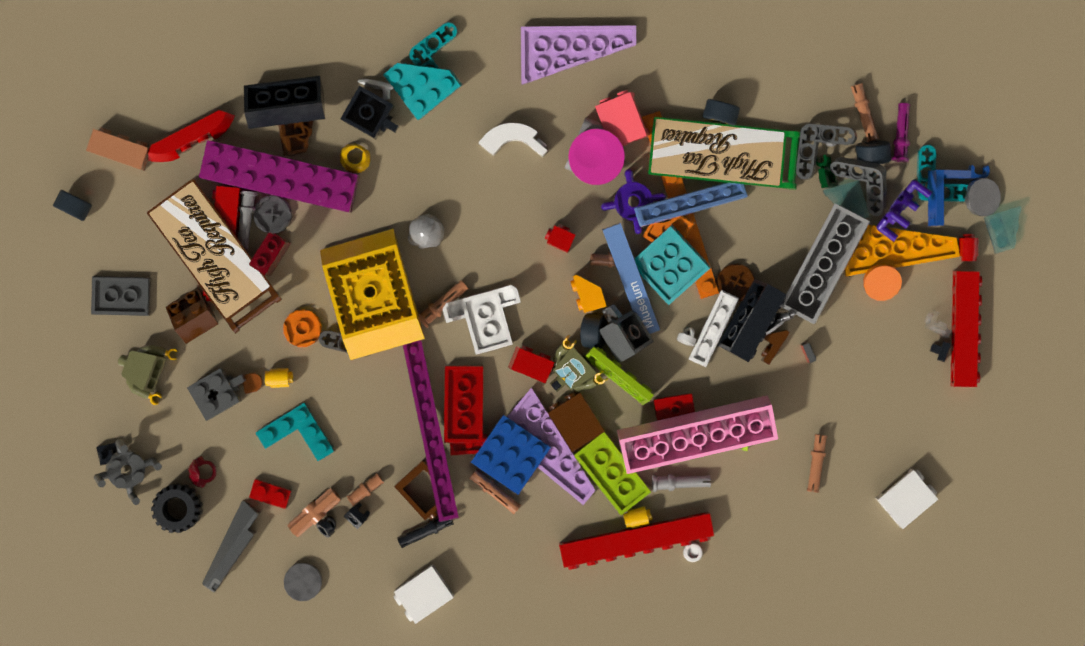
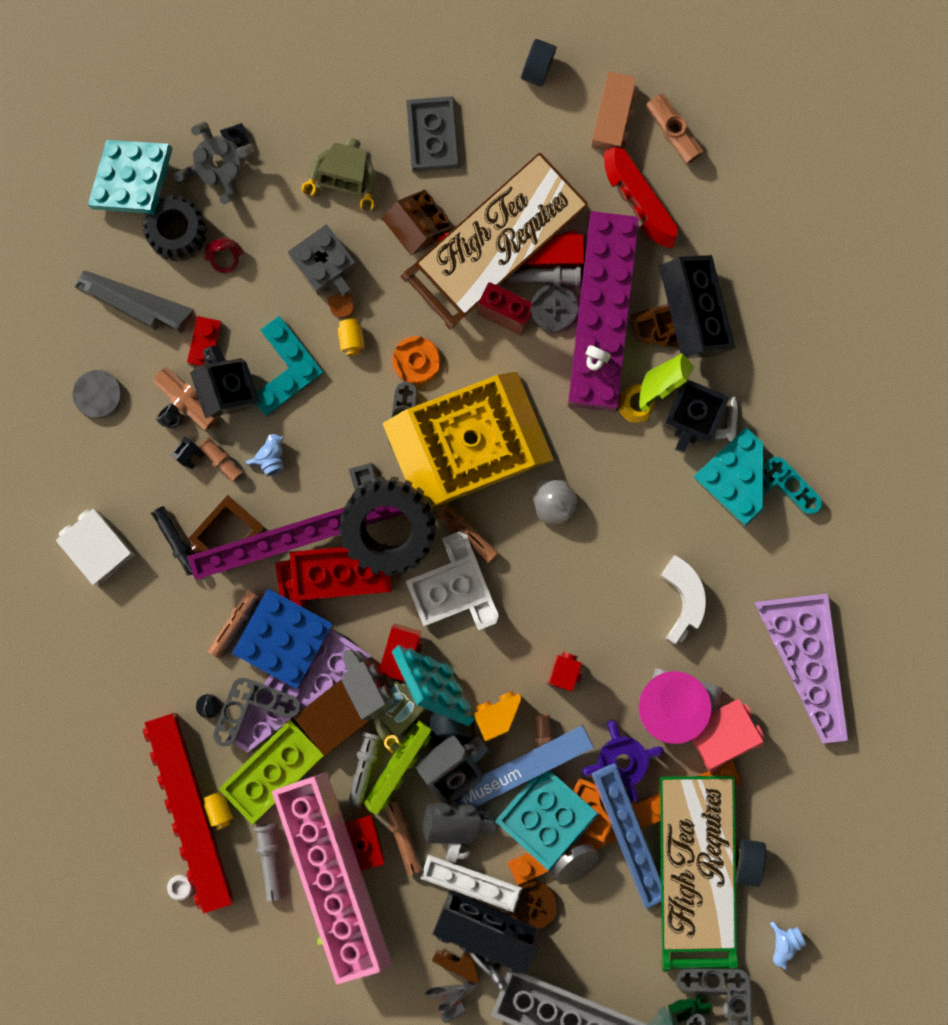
camera: 85 degrees right, 5 degrees down
(126, 107) = (682, 141): none -> nougat piece
(131, 539) = (130, 176): none -> plate
(306, 481) = (223, 385): none -> black hinge
(315, 183) = (599, 354): none -> white tile
(339, 135) = (664, 379): none -> lime slope
(366, 451) = (269, 456): none -> light blue animal
(391, 379) = (362, 474): none -> dark grey tile
(456, 363) = (381, 556): none -> black tyre
(554, 393) = (366, 686): none -> dark grey hinge
(554, 481) = (253, 698): none -> dark grey beam
(556, 517) = (208, 706): none -> black tile
(559, 341) = (433, 685): none -> teal plate
(609, 398) = (366, 757): none -> light grey pin
(667, 335) = (456, 823): none -> dark grey hinge
(673, 377) = (403, 838): none -> nougat pin
(708, 246) = (576, 865): none -> flat silver tile
(786, 91) = (786, 945): none -> light blue animal
(795, 351) = (453, 994): none -> flat silver piece

